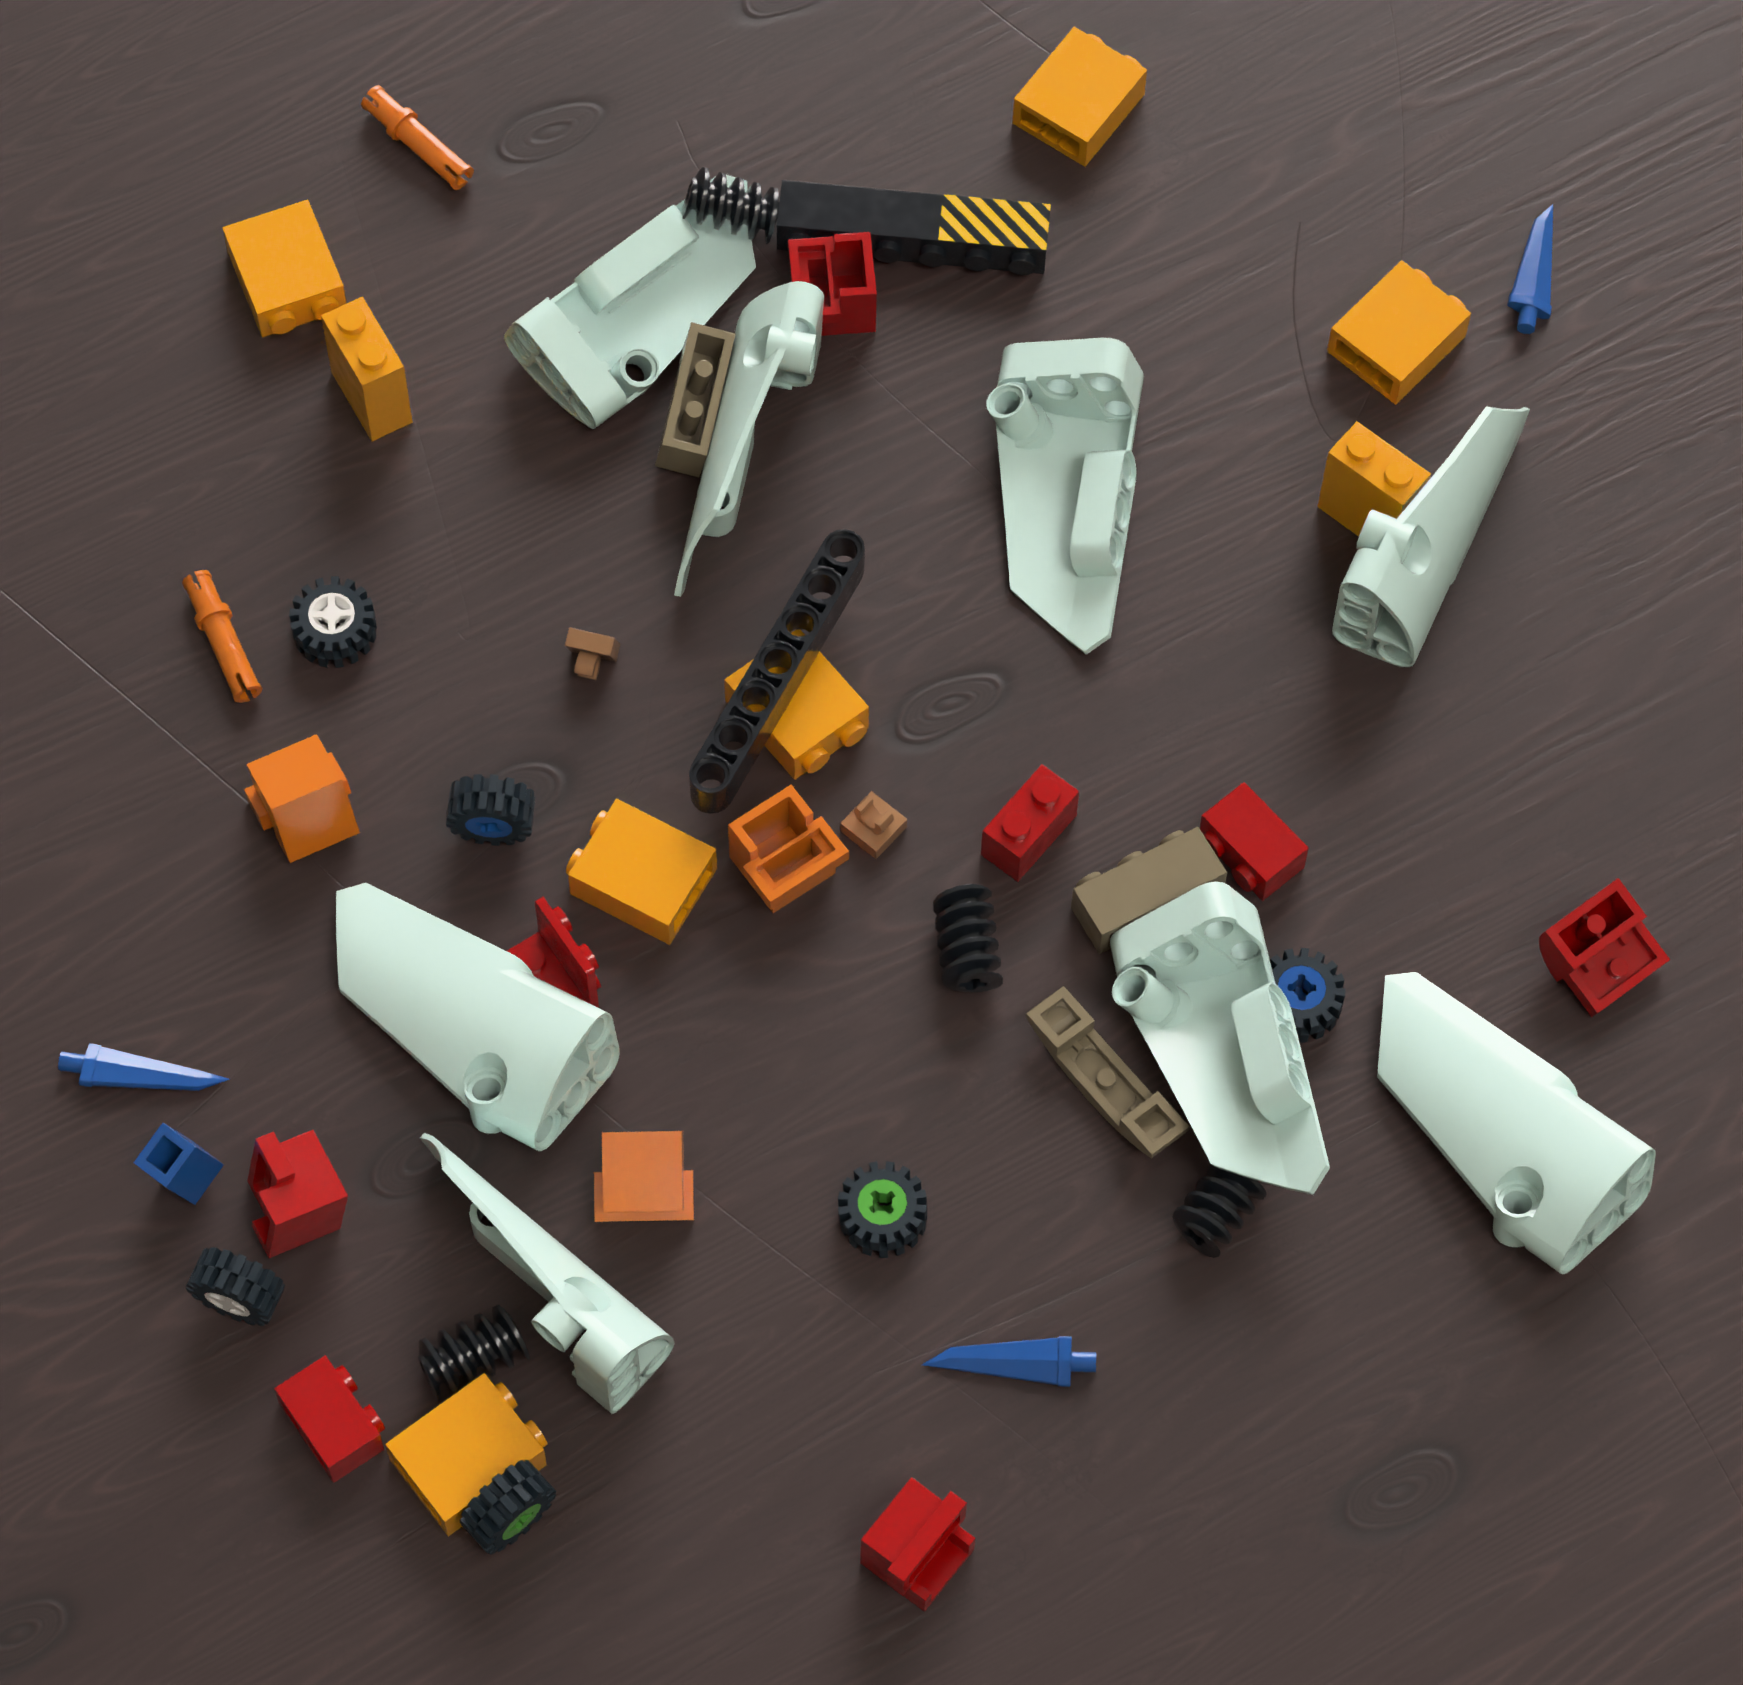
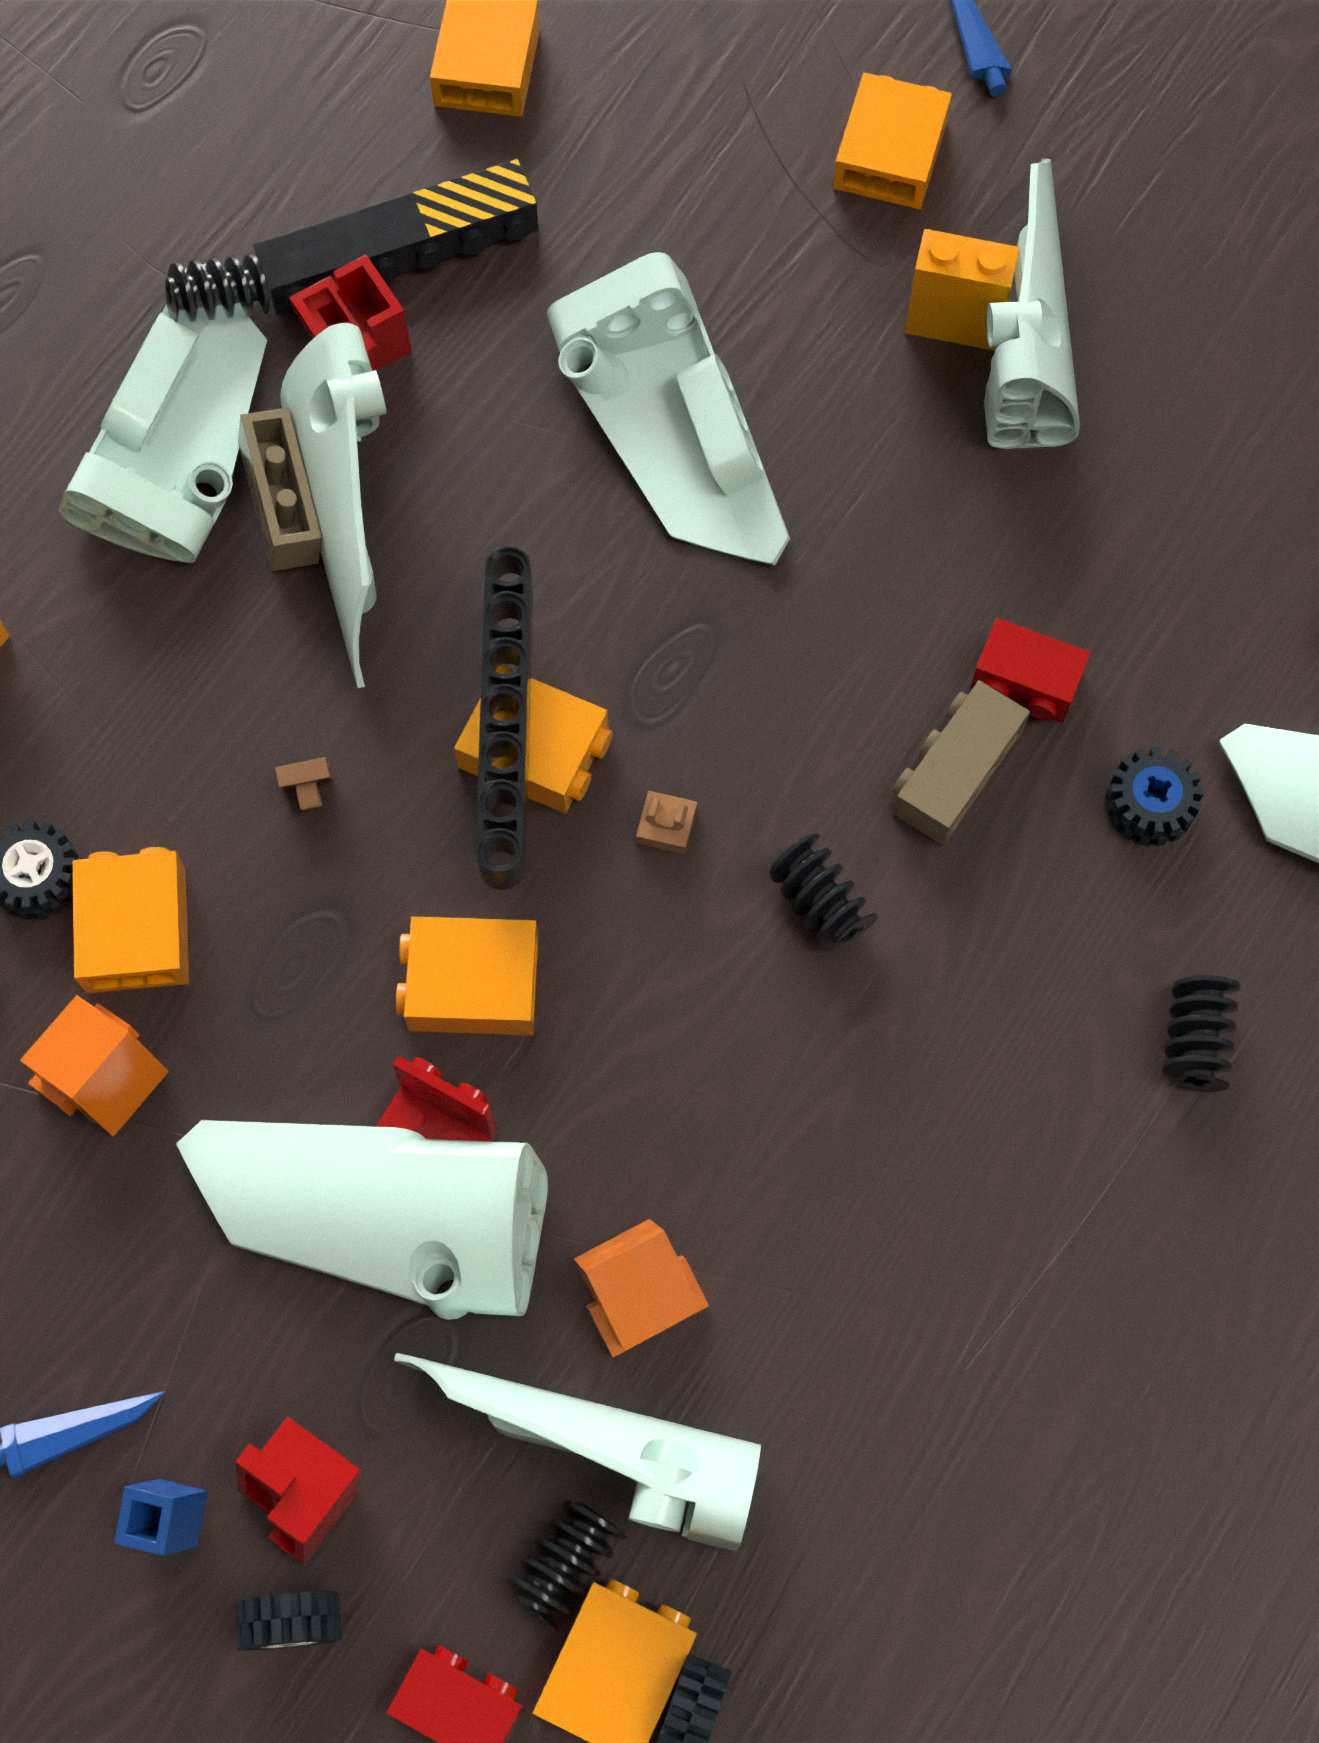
camera: 25 degrees left, 5 degrees up
(390, 698) = (130, 921): none -> light orange brick
(490, 809) = (291, 987): black wheel -> none
(784, 848) = (601, 888): orange plate -> none
(890, 1225) = (878, 1220): black wheel -> none
(918, 1543) = (1111, 1533): red plate -> none
(1029, 822) = (816, 750): red brick -> none
(1029, 1360) = (1107, 1281): blue bar -> none
(1103, 1076) = (1021, 966): dark tan slope -> none
(1223, 1034) = (1124, 875): light aqua panel -> none

